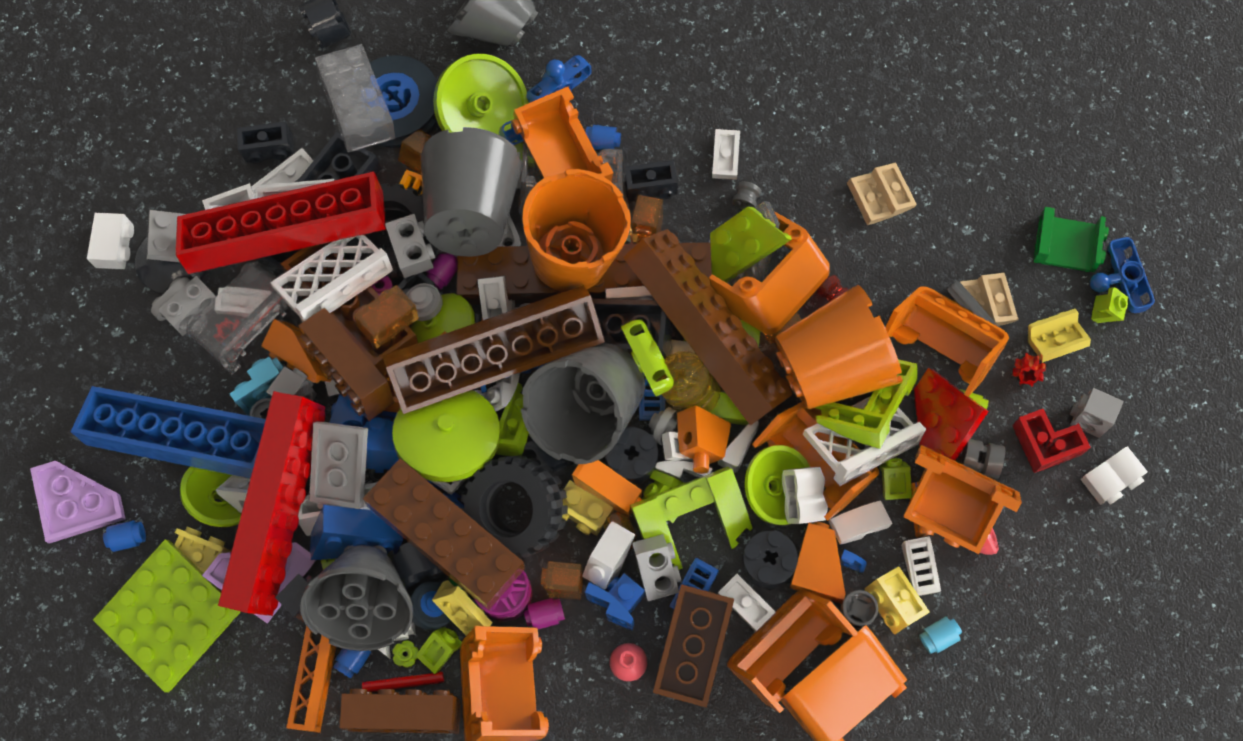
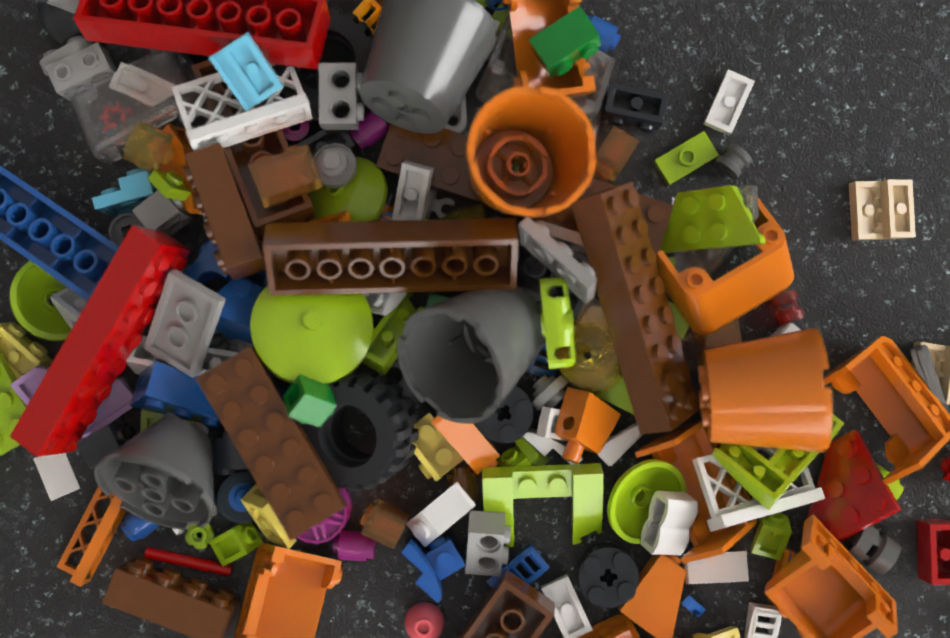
camera: 20 degrees right, 15 degrees up
(262, 648) = (56, 475): none -> white sticker
(265, 337) = (148, 147): none -> clear yellow brick
(291, 360) = (169, 184): none -> lime plate
(329, 245) = (246, 71): none -> medium azure plate
(464, 486) = (309, 401): none -> green brick
(576, 144) = (565, 42): none -> green brick
(629, 305) = (558, 258): none -> light grey plate
(708, 208) = (686, 158): none -> lime plate

